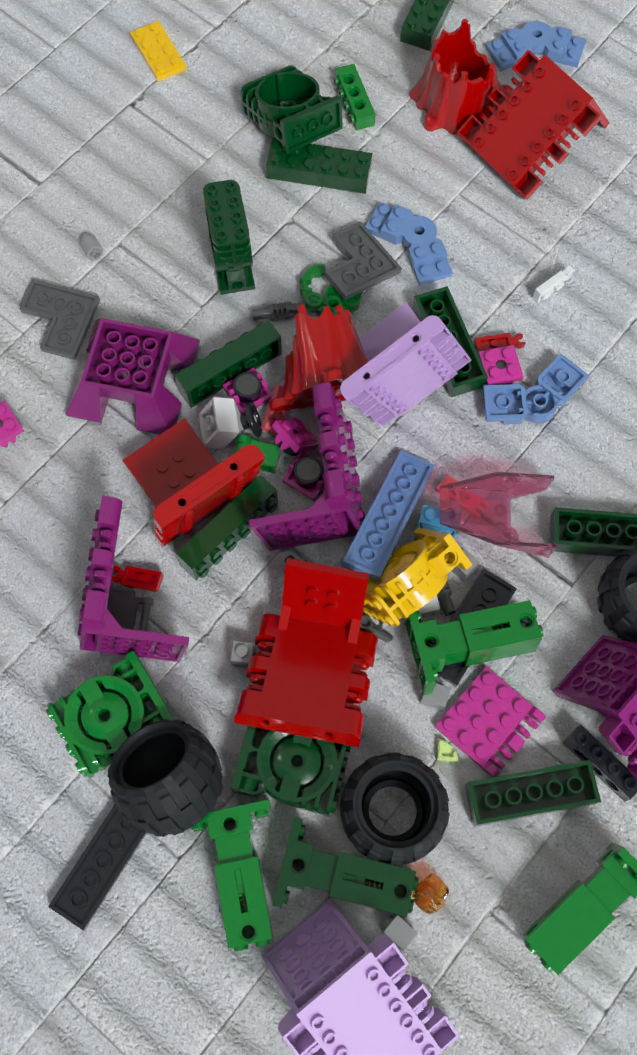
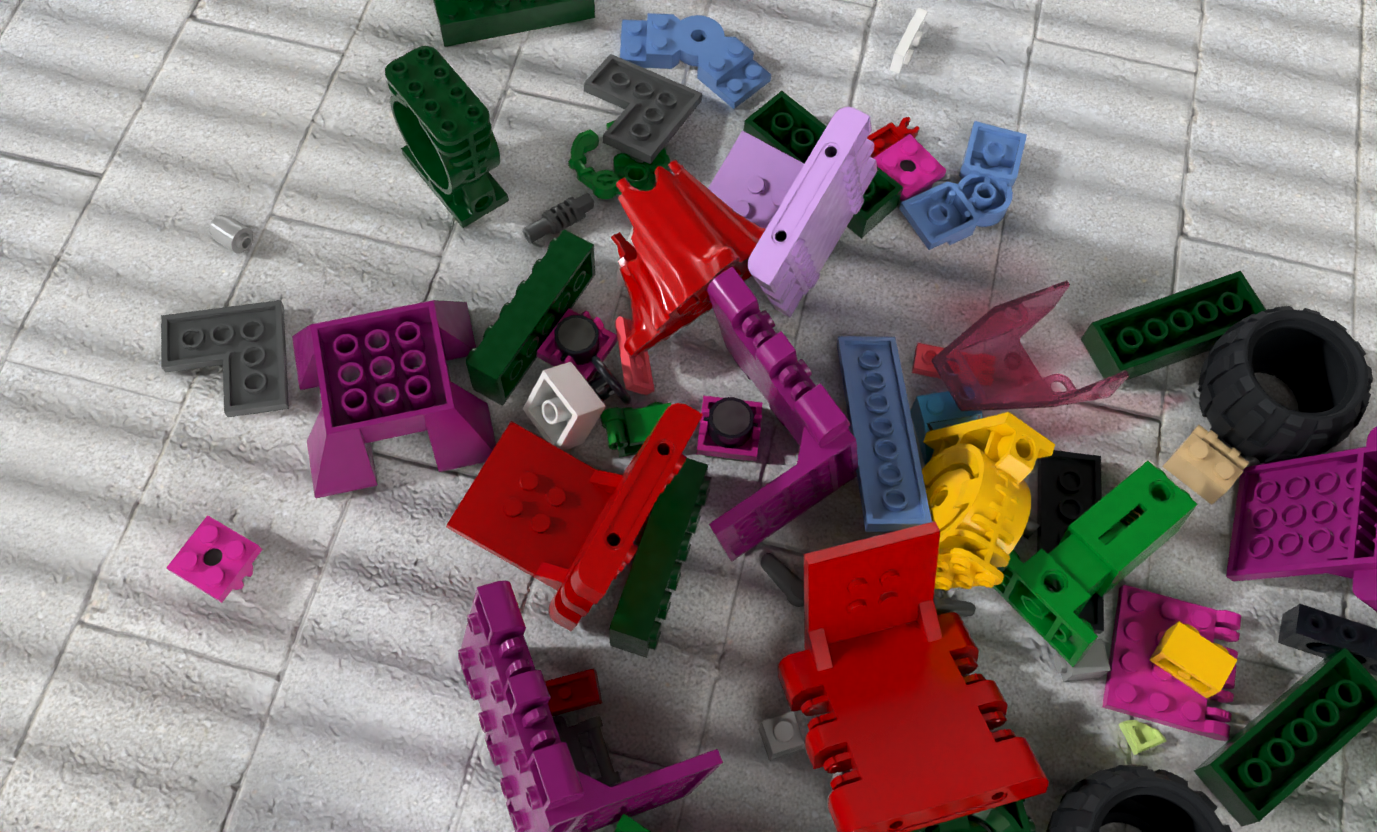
camera: 30 degrees left, 5 degrees down
(294, 437) = (684, 380): dark pink piece -> none
(497, 723) = (1193, 659): none -> yellow brick
(576, 624) = (1206, 464): none -> tan brick

